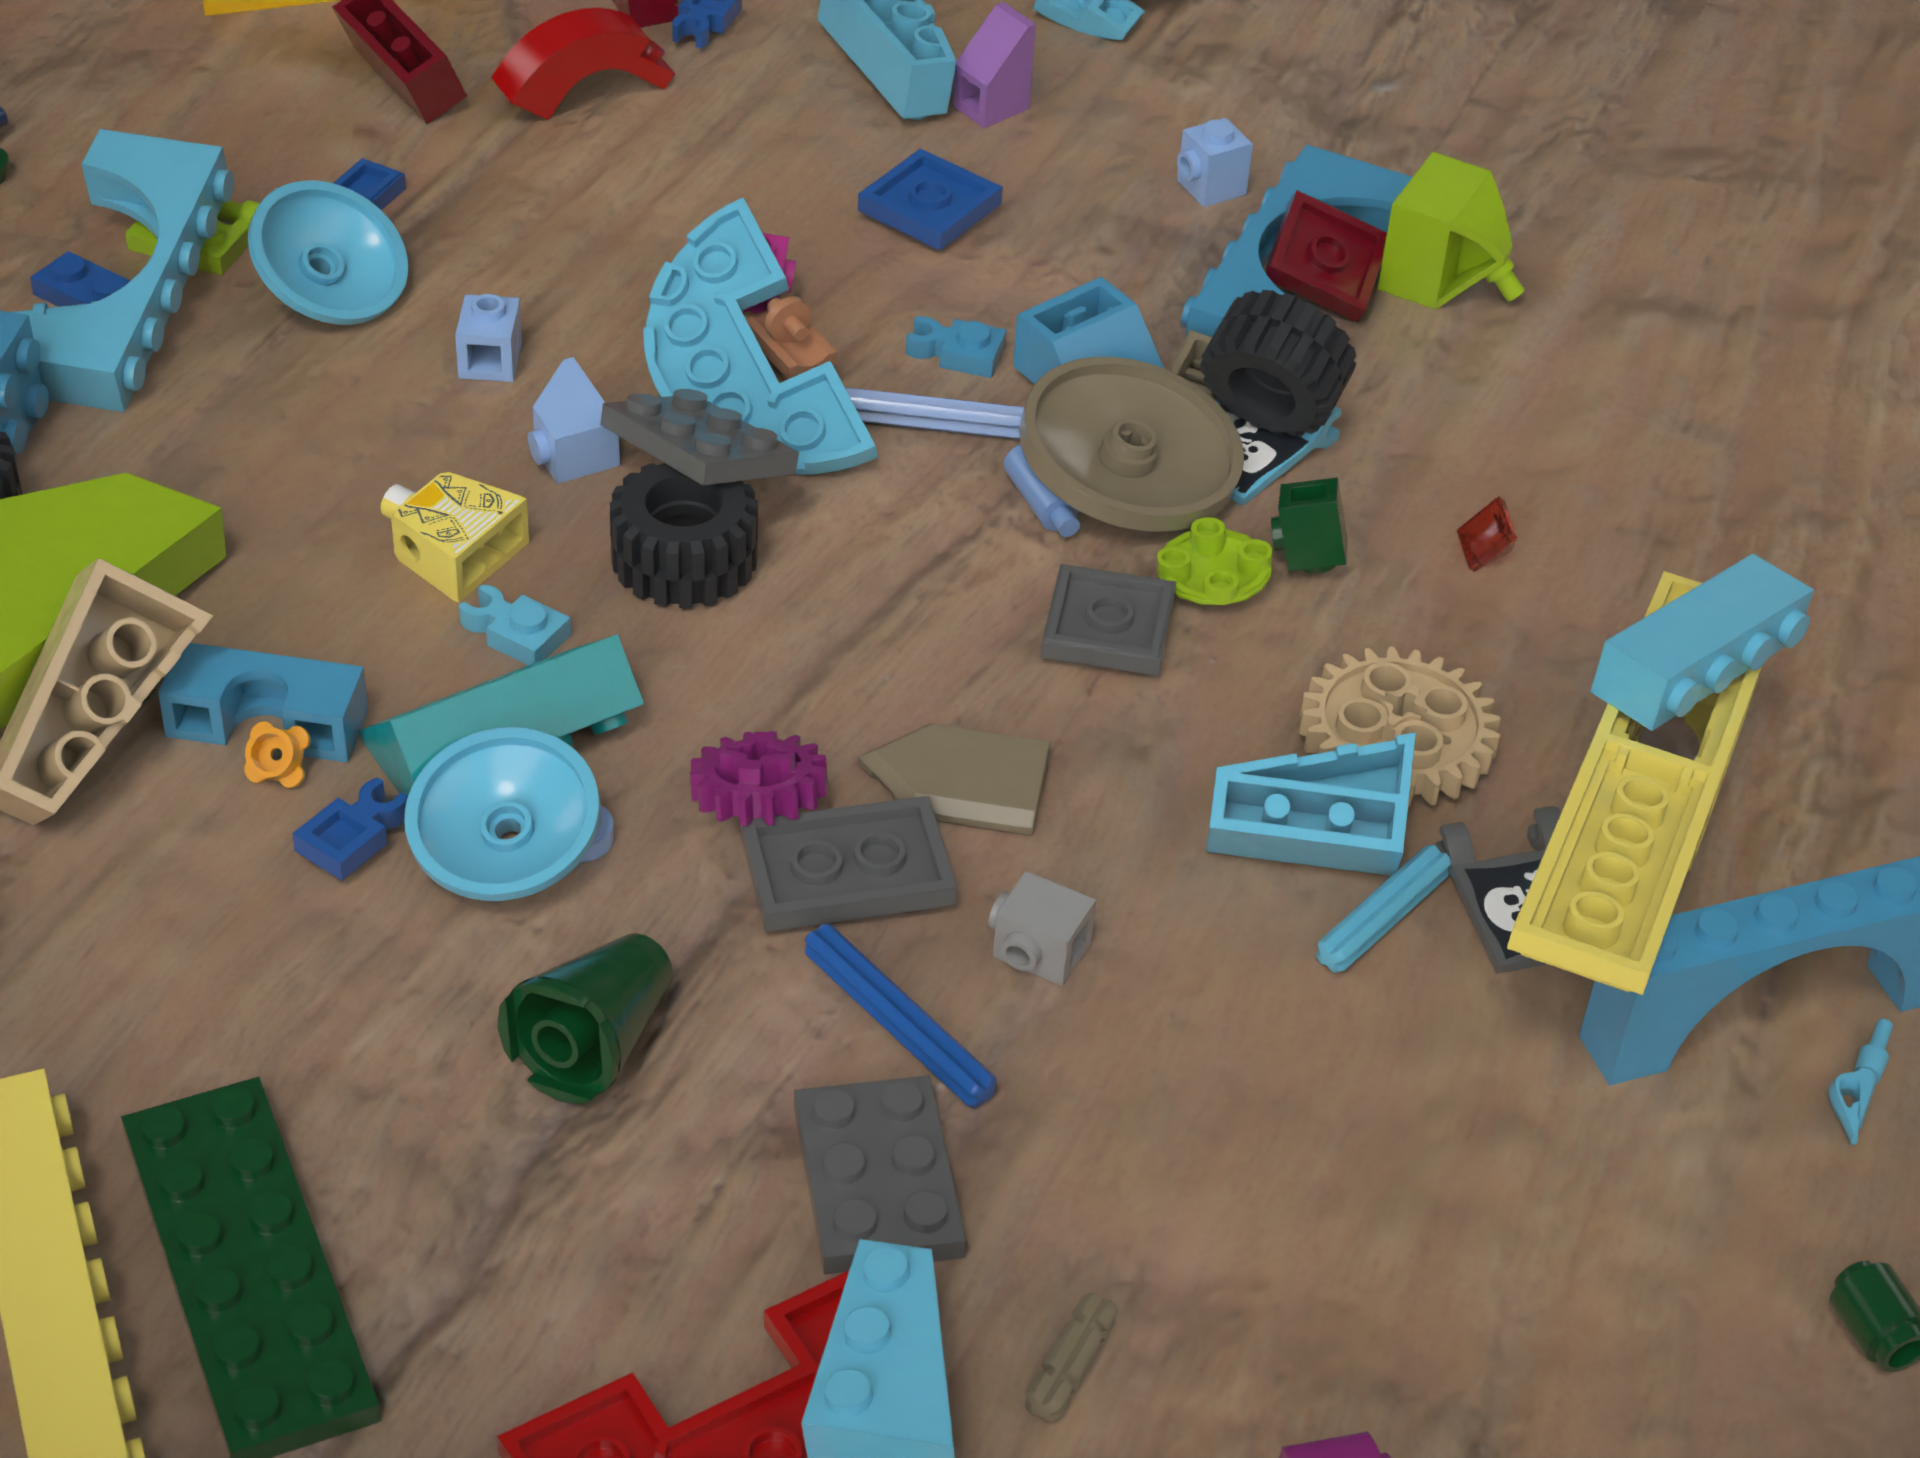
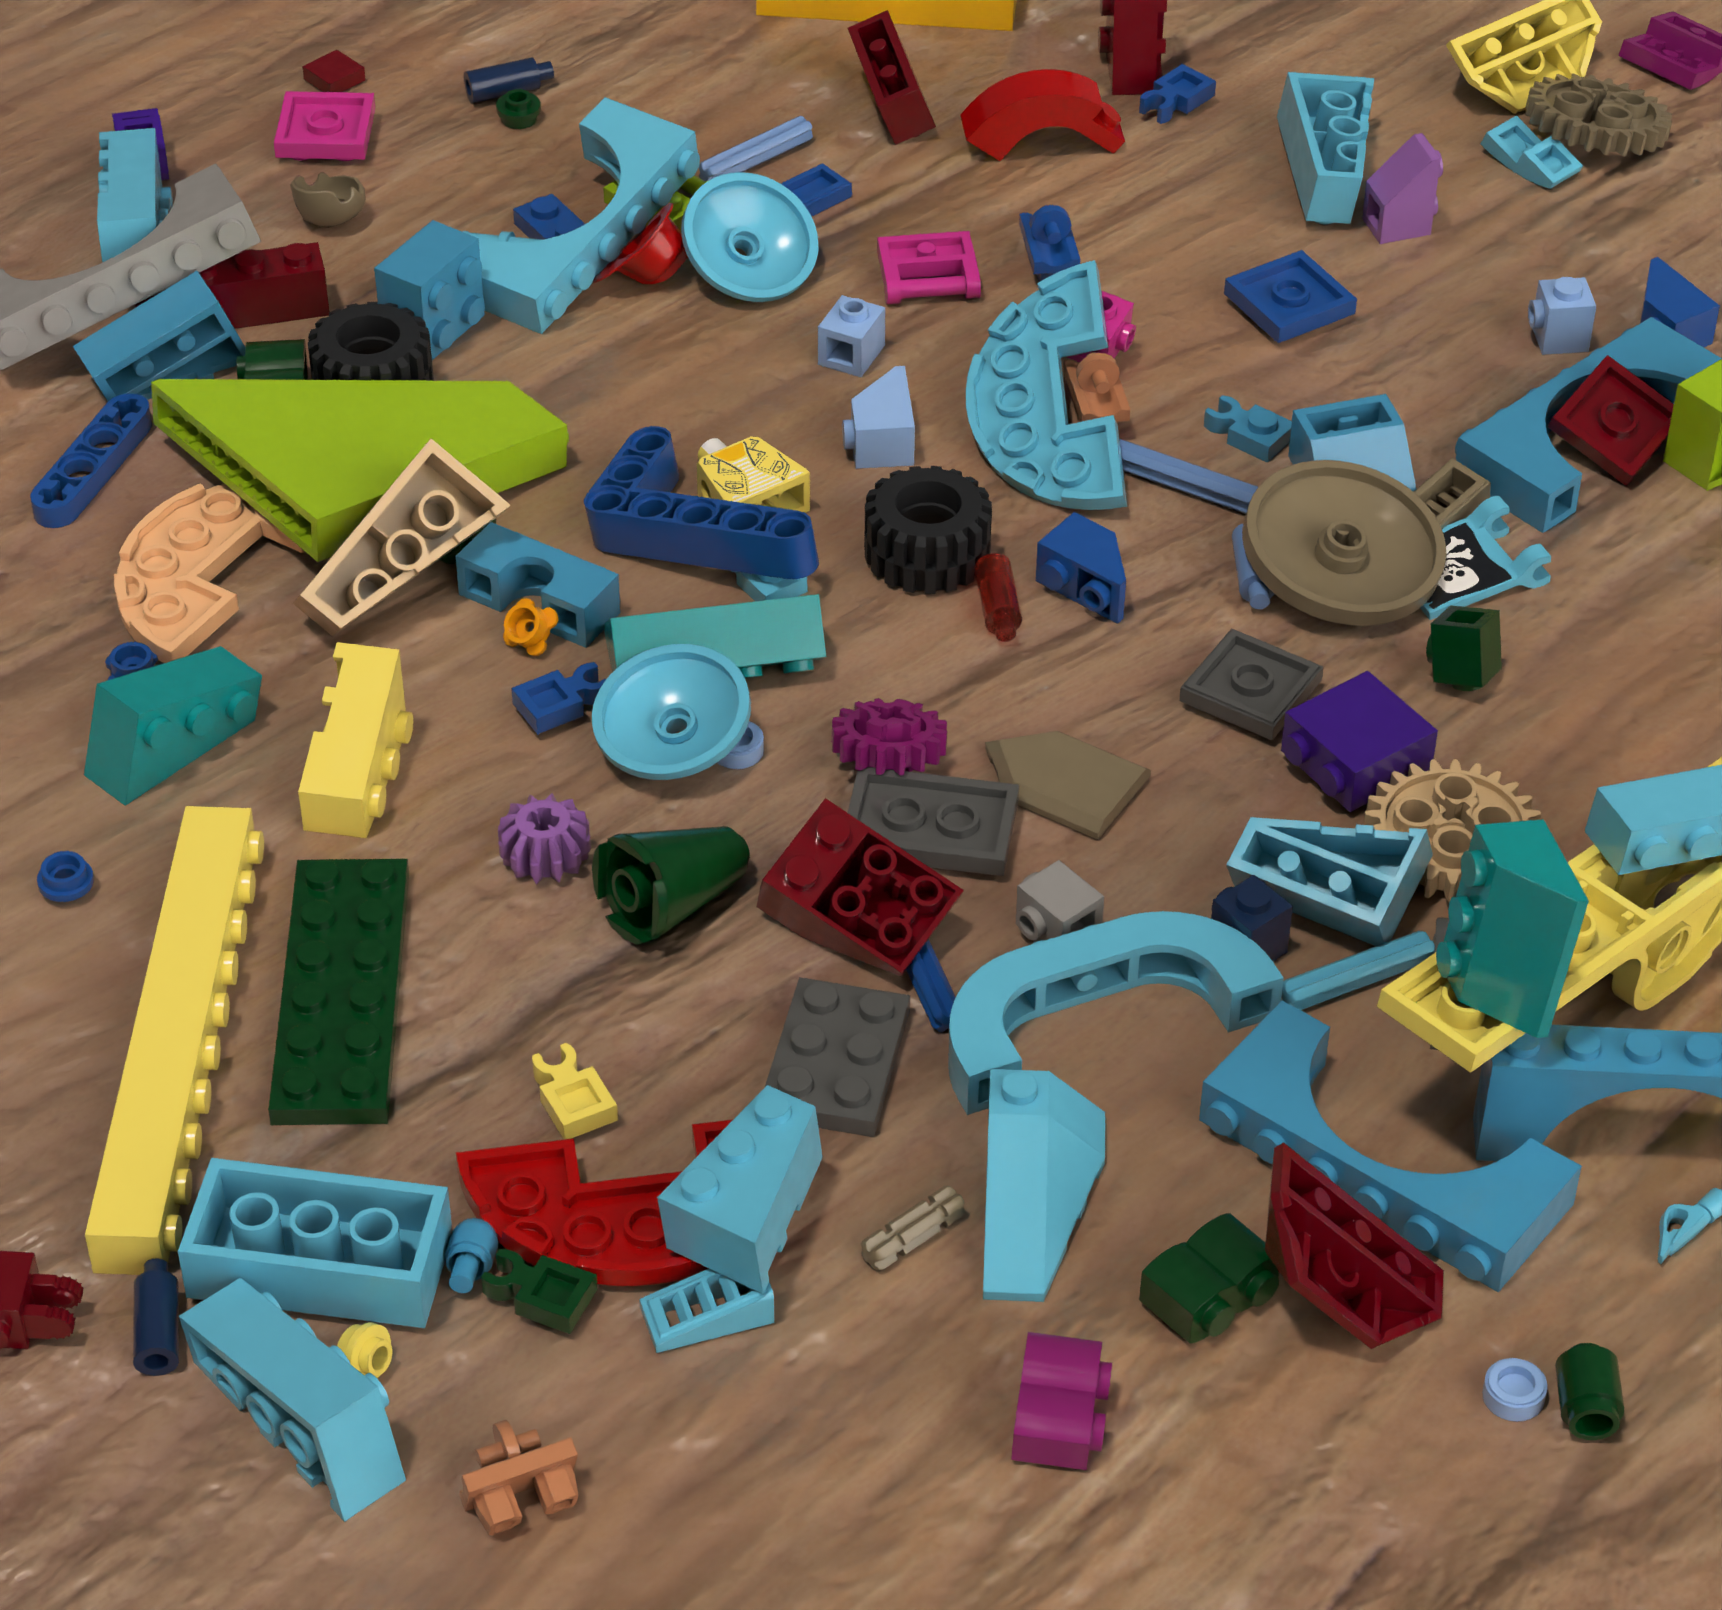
camera: 25 degrees right, 0 degrees up
(137, 951) = (359, 744): none -> light yellow wedge
(220, 290) = (652, 253): none -> red piece
(281, 157) = (758, 149): none -> medium blue axle
(353, 599) = (639, 517): none -> blue beam
(416, 1005) = (544, 838): none -> medium lavender gear
(530, 234) = (928, 256): none -> dark pink plate
(602, 1320) = (572, 1097): none -> light yellow plate
(658, 195) = (1049, 240): none -> blue hips
(699, 437) = (968, 454): dark grey plate -> none
(792, 589) = (998, 596): none -> clear red cylinder
(819, 971) = (856, 891): none -> dark red slope
(873, 533) = (1083, 565): none -> blue slope
(1176, 1257) = (1040, 1169): none -> medium azure wedge
(1193, 936) = (1098, 962): none -> medium azure arch
(1215, 564) = (1371, 649): lime dish -> none
(1254, 888) = (1256, 913): none -> dark blue brick
(1257, 652) = (1356, 739): none -> dark purple brick
(1278, 363) = (1495, 501): black tyre -> none
(1305, 120) = (1679, 304): none -> blue slope
(1430, 1314) = (1209, 1279): none -> dark green brick
(1487, 535) = (1630, 695): clear red slope -> none
(1570, 1241) = (1346, 1256): none -> dark red wedge
(1651, 818) = (1512, 925): none -> teal slope
(1655, 1158) = (1471, 1219): none -> dark azure arch
(1797, 1338) = (1514, 1389): none -> light blue tile

